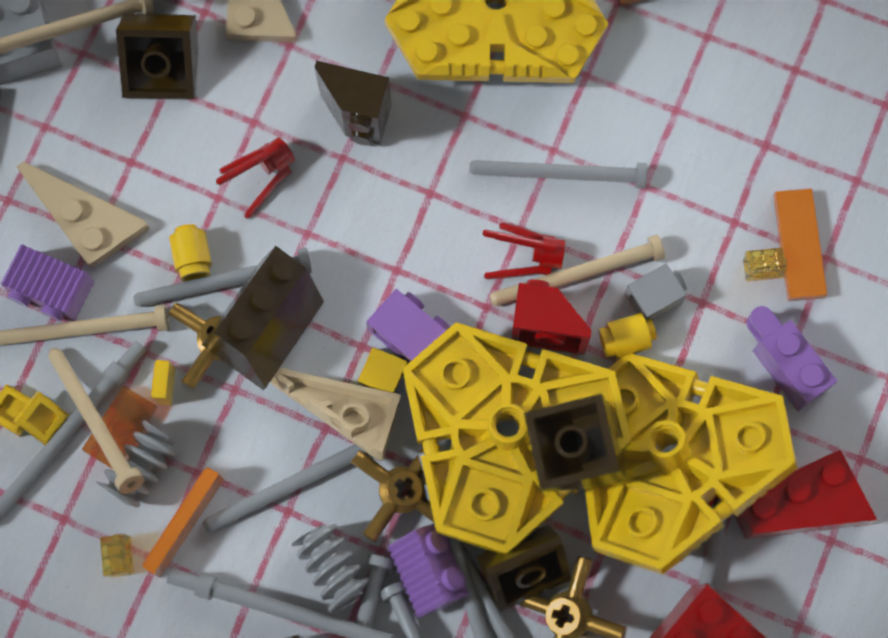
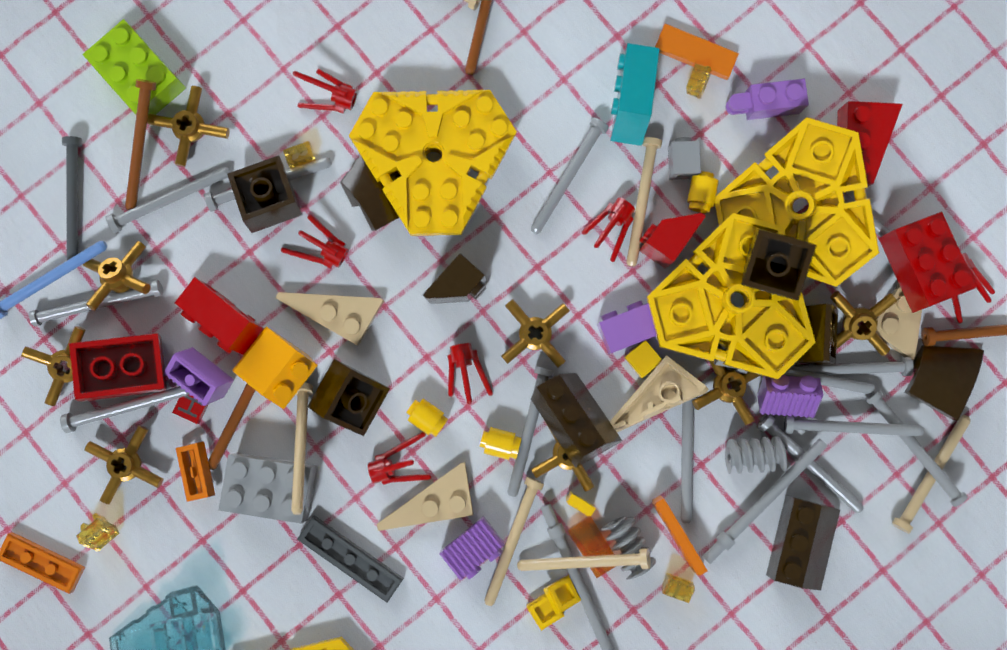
camera: 60 degrees left, 10 degrees up
(94, 137) = (382, 469): none -> red plant
(179, 153) = (426, 417): none -> yellow brick
(350, 238) = (535, 322): none -> pearl gold bar
(702, 191) = (635, 94): none -> teal wedge

